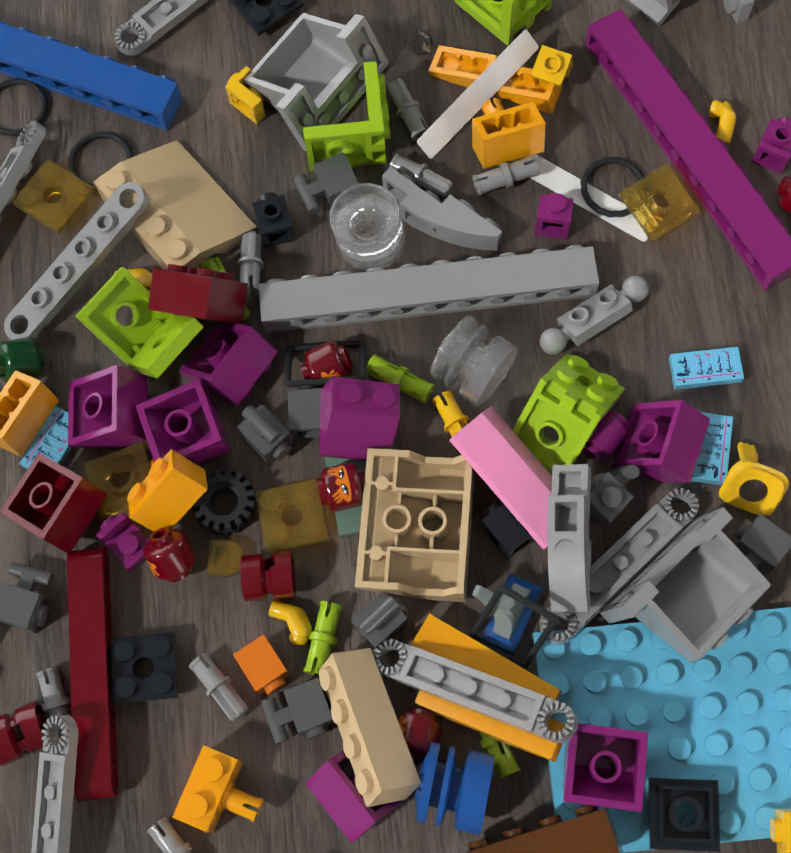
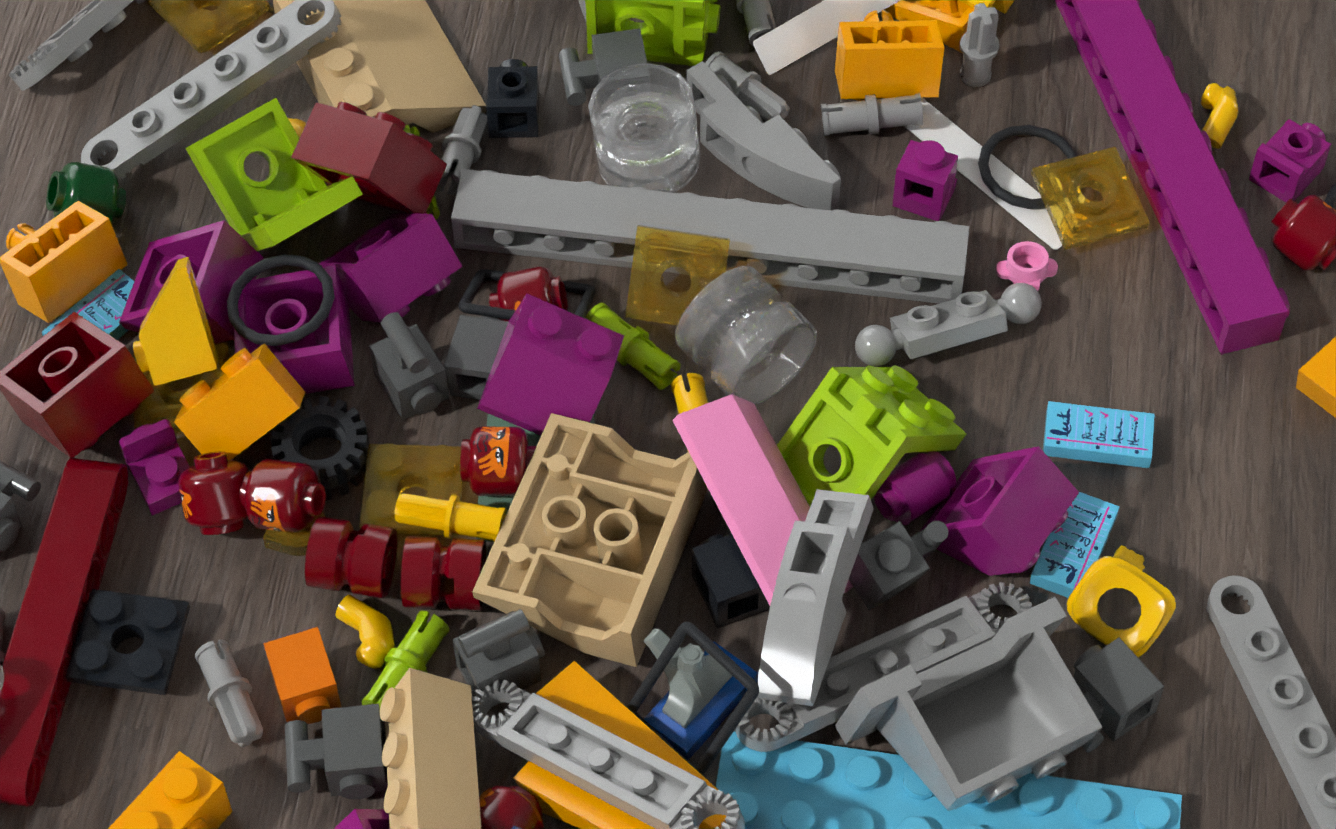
camera: 10 degrees right, 15 degrees down
(111, 454) = (176, 331): none -> yellow slope
(149, 393) = (290, 337): none -> black piece
(212, 547) = (282, 496): none -> dark red head
(324, 535) = (450, 516): none -> yellow axle
(329, 572) = (441, 572): none -> dark red wheel
(405, 313) = (659, 249): none -> clear yellow piece
(564, 112) = (979, 46): none -> light grey axle
(633, 253) = (1027, 264): none -> bright pink plate

